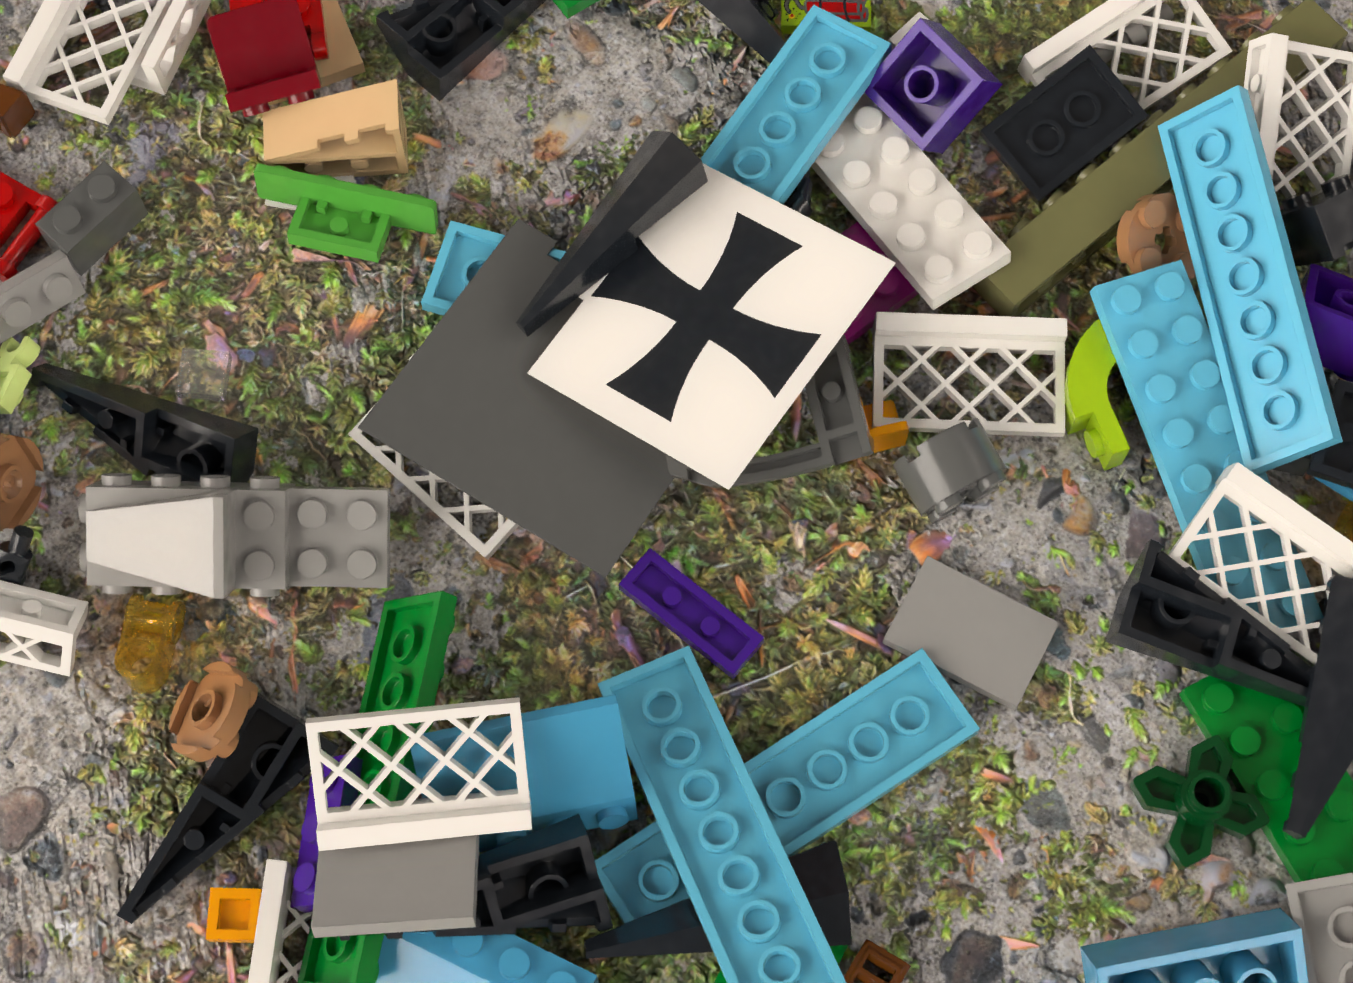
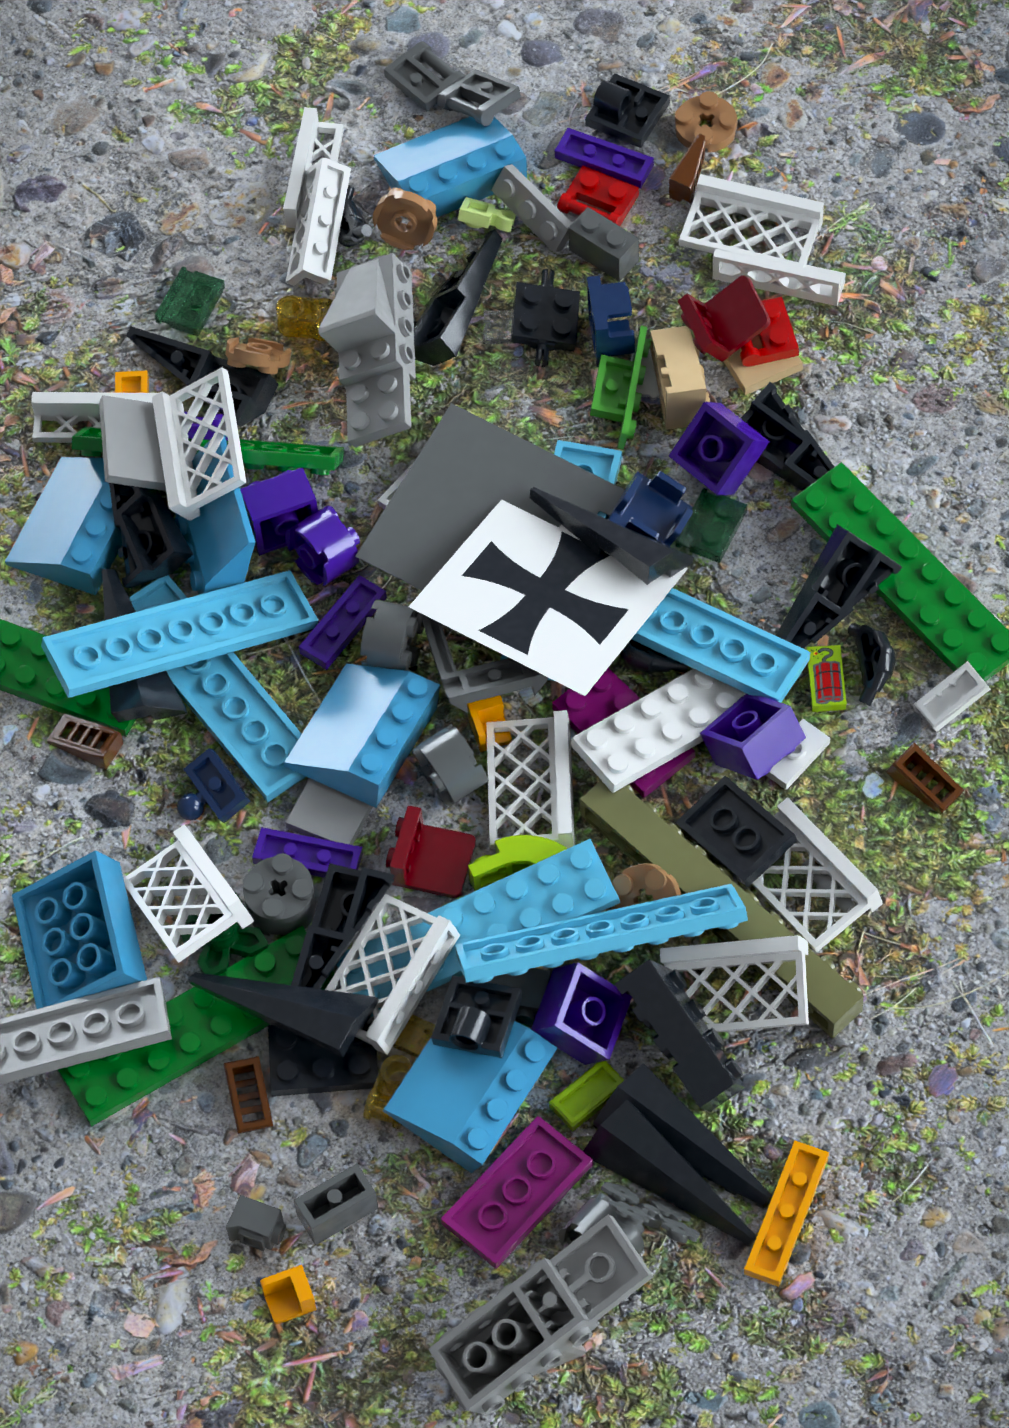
camera: 90 degrees right, 10 degrees down
(58, 123) = (677, 219): none -> clear tile
(84, 820) = (190, 301): none -> clear green plate
(201, 309) = (545, 317): none -> black plate
(230, 218) = (609, 302): none -> dark blue panel
(476, 89) = (718, 448): none -> dark purple brick
(501, 666) = (277, 506): none -> dark purple brick
(556, 187) = (653, 507): none -> dark blue panel
(573, 626) = (323, 546): none -> dark purple brick
(575, 125) = (712, 525): none -> clear green plate
(740, 536) = (391, 636): none -> dark grey brick
(885, 585) = (365, 730): none -> dark azure slope
(955, 805) = (214, 787): none -> dark blue plate
(1071, 679) = (310, 851): none -> dark purple plate
(1081, 510) = (429, 856): none -> dark red bracket
(1137, 802) = (203, 873): none -> white fence
(1152, 688) = (279, 895): none -> dark grey brick

